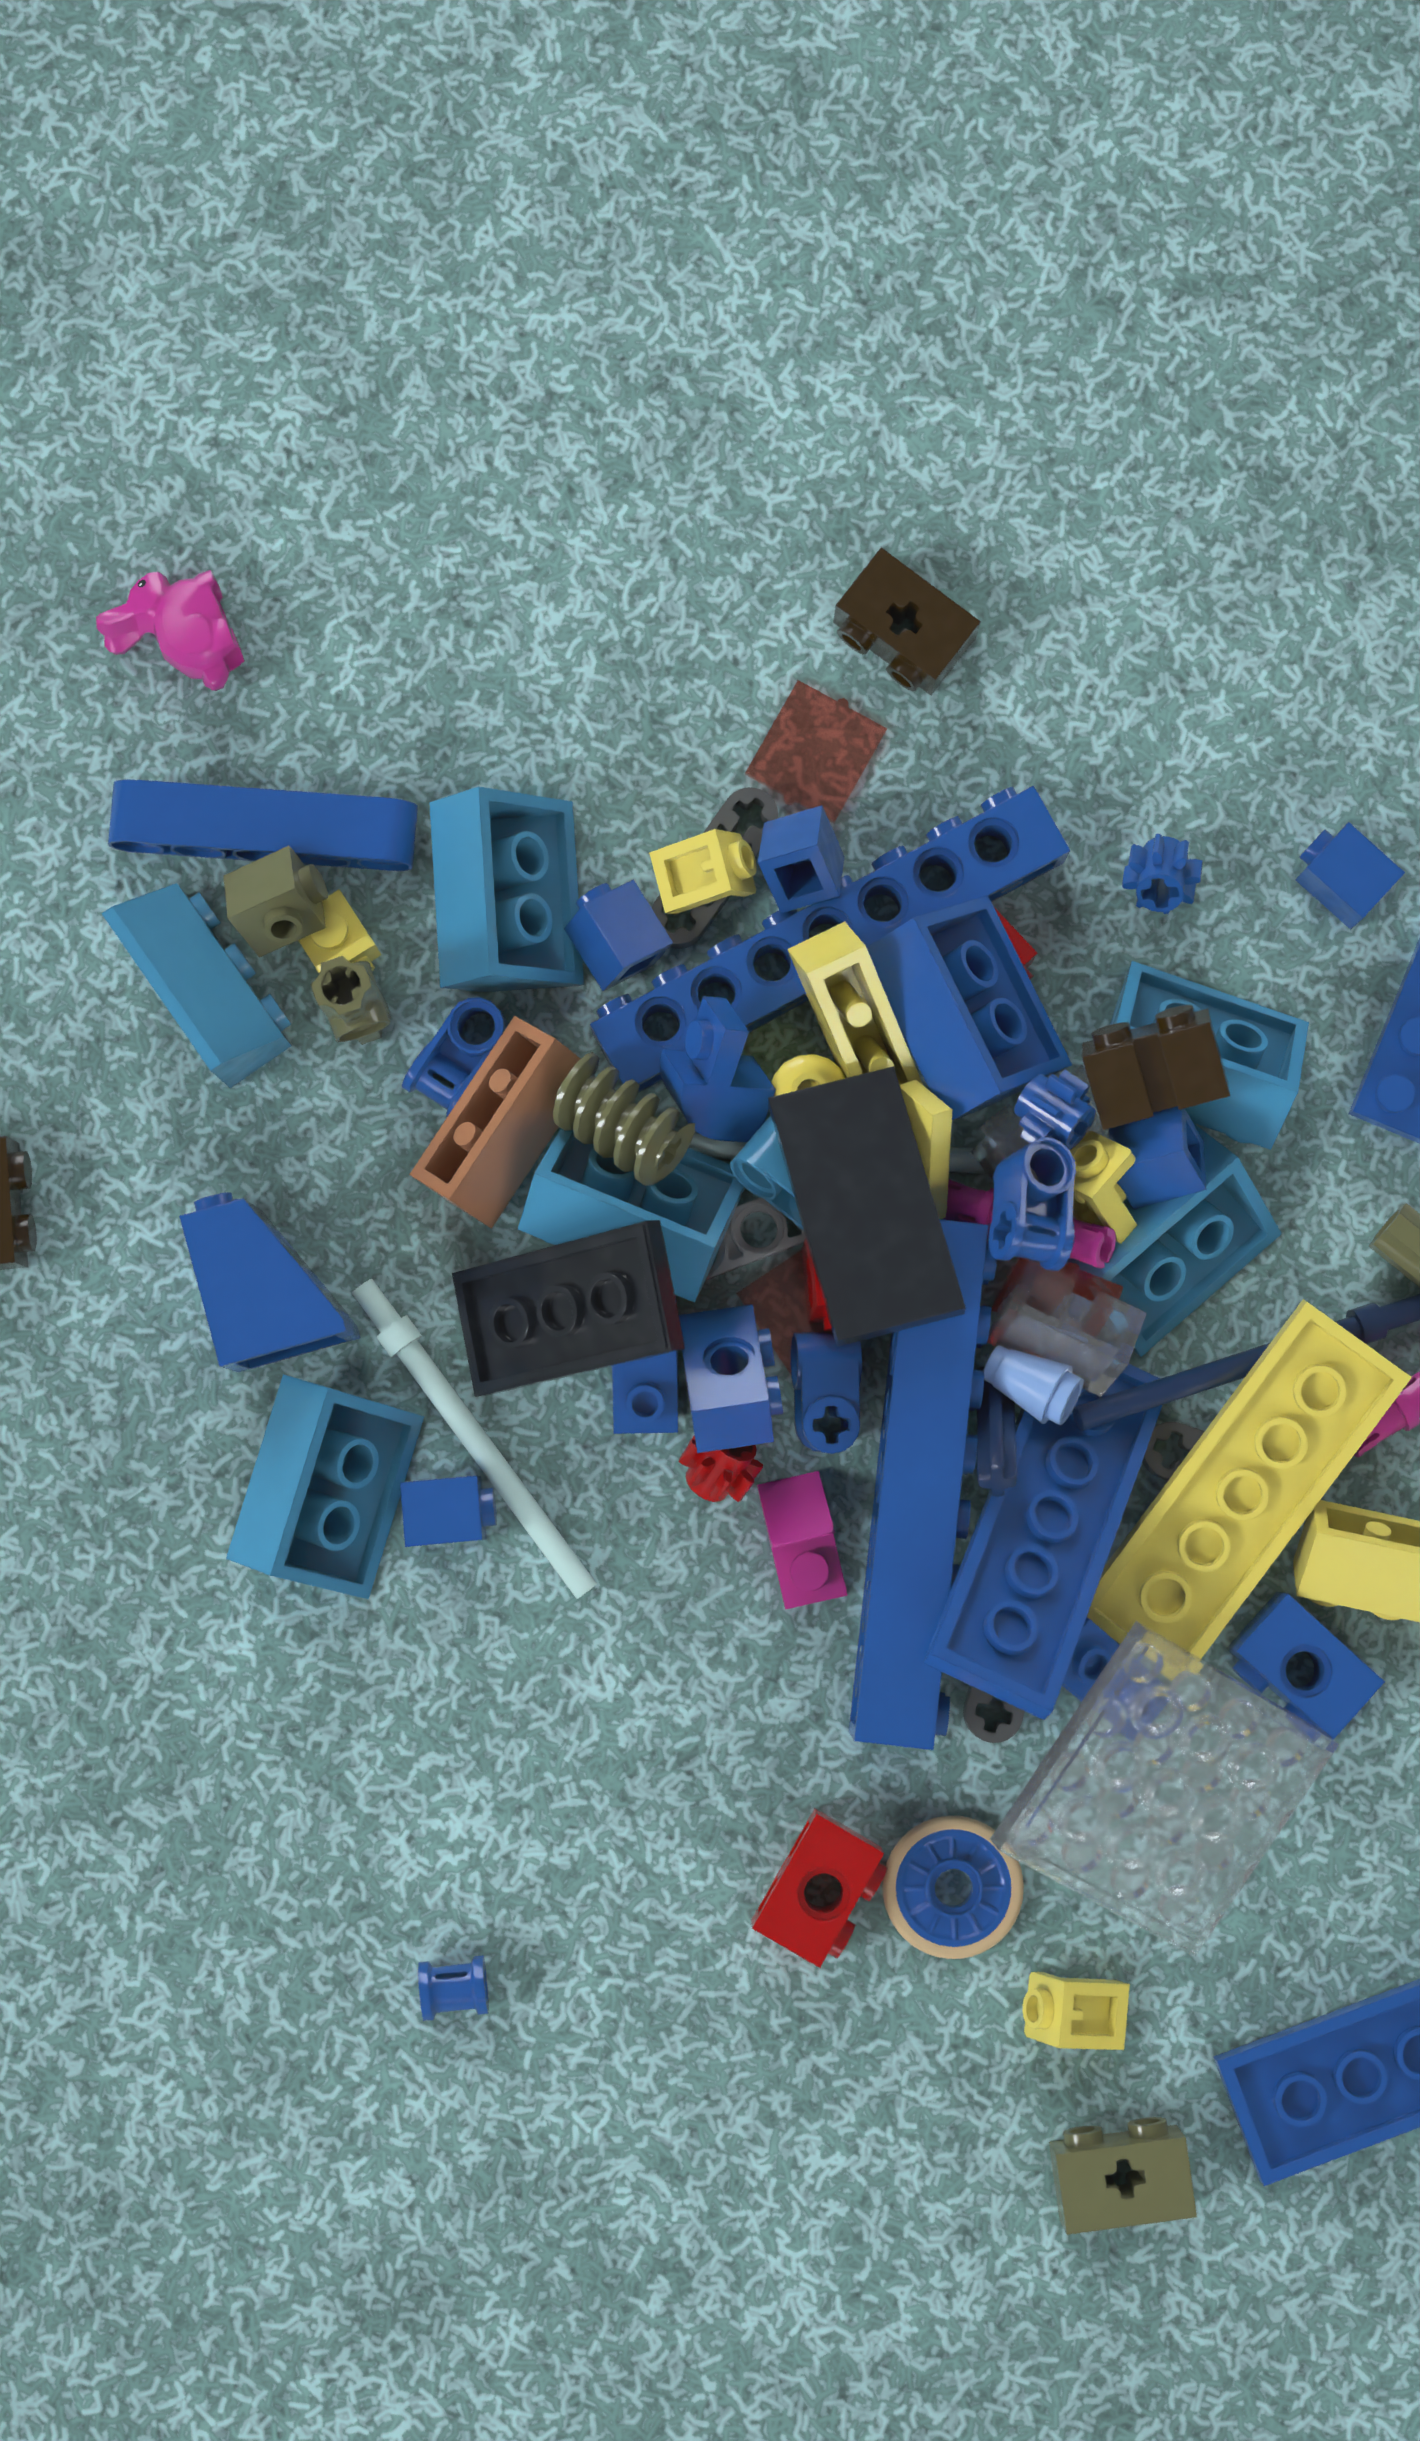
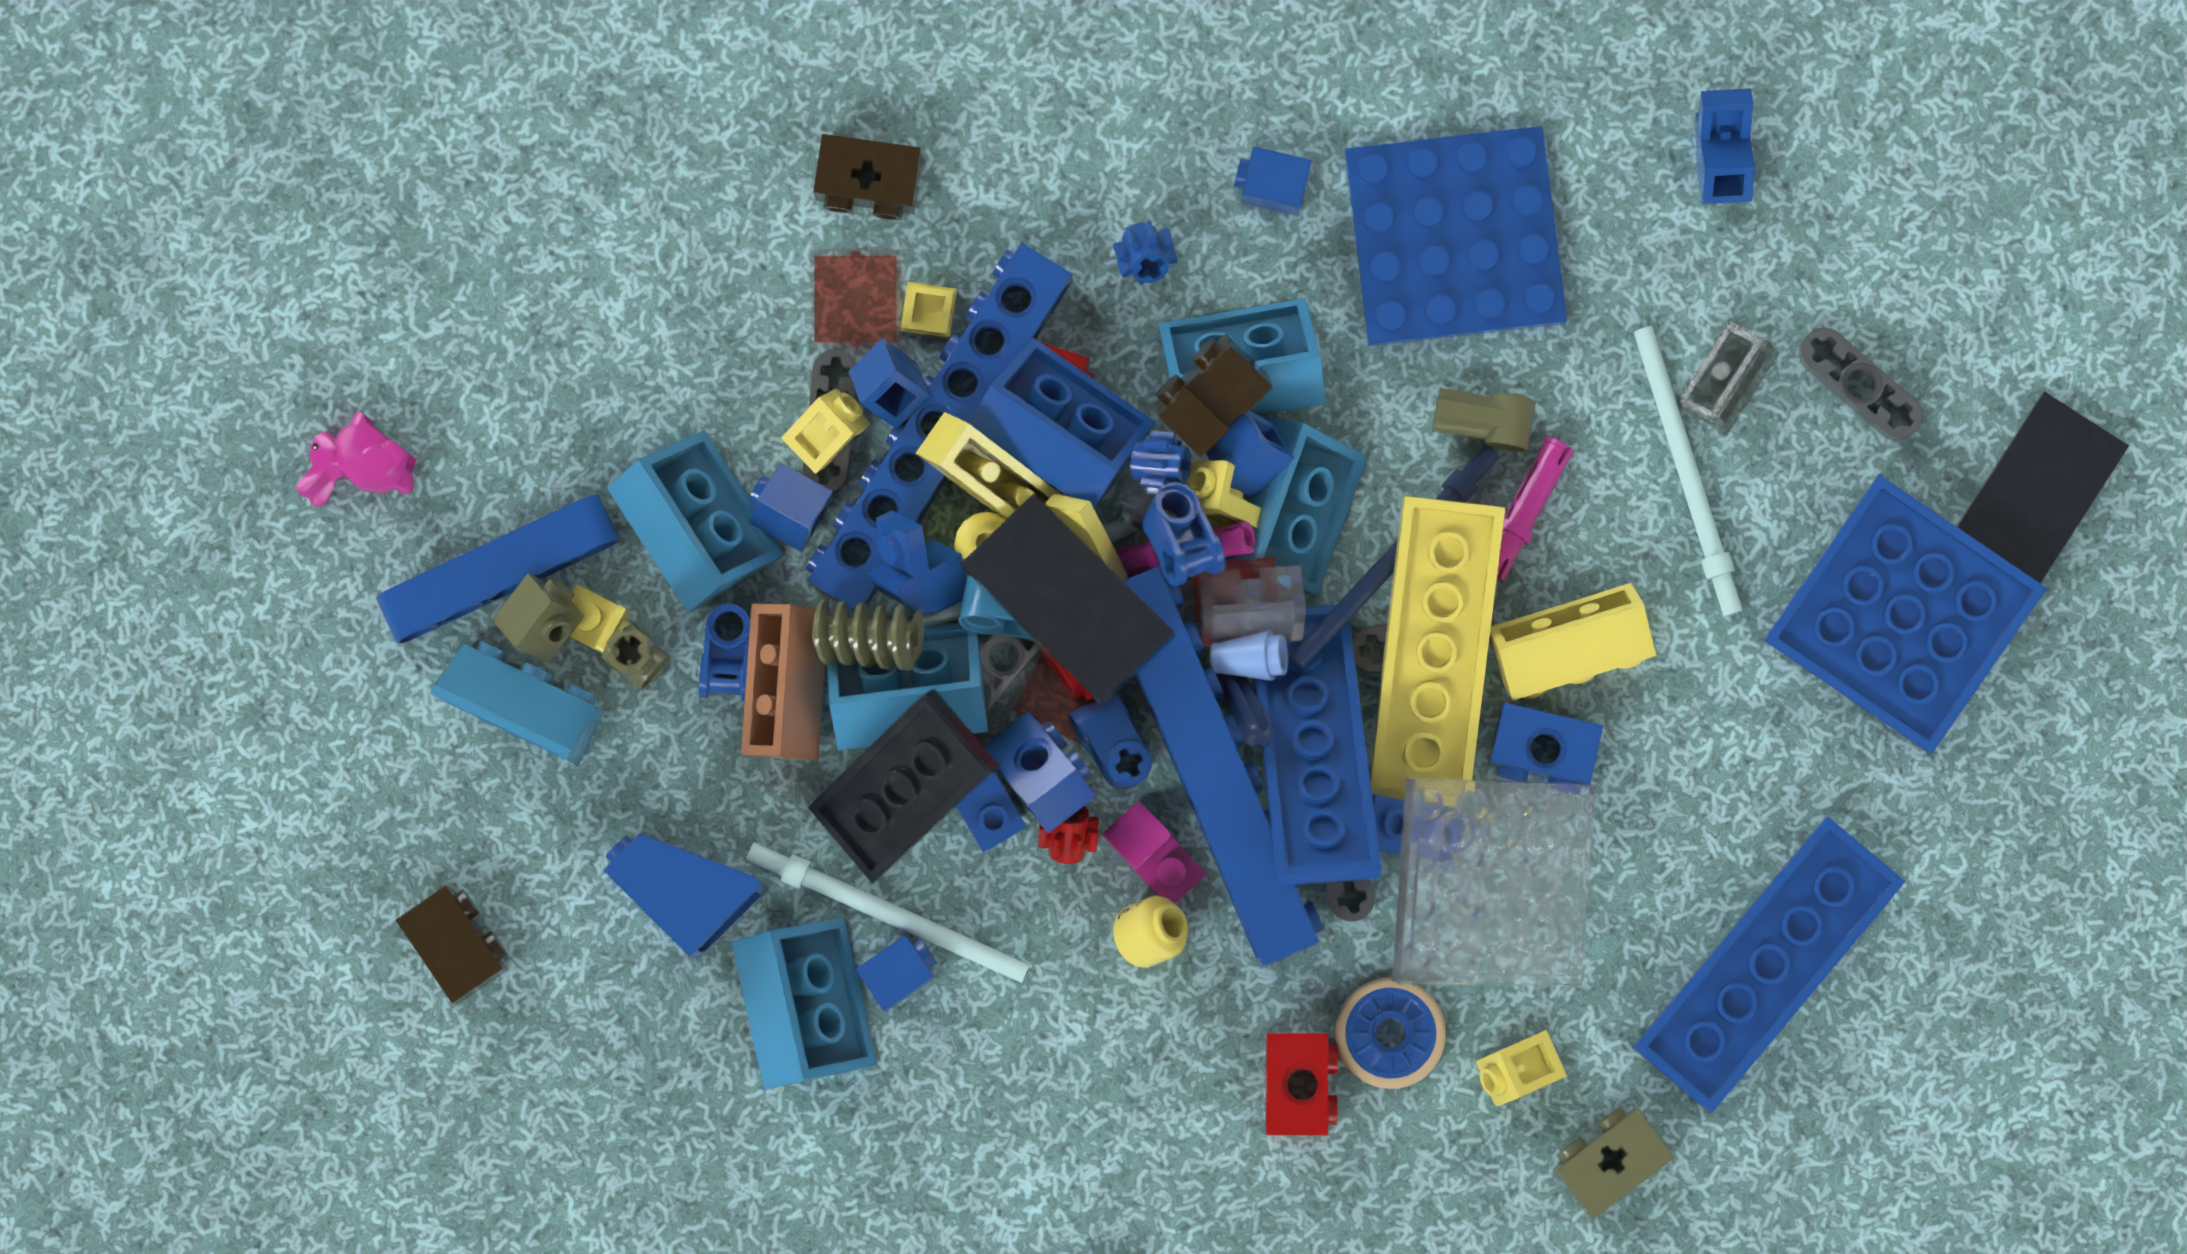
camera: 25 degrees left, 0 degrees up
(750, 1625) = (1150, 931): none -> light yellow head
(888, 807) = (928, 310): none -> light yellow tile

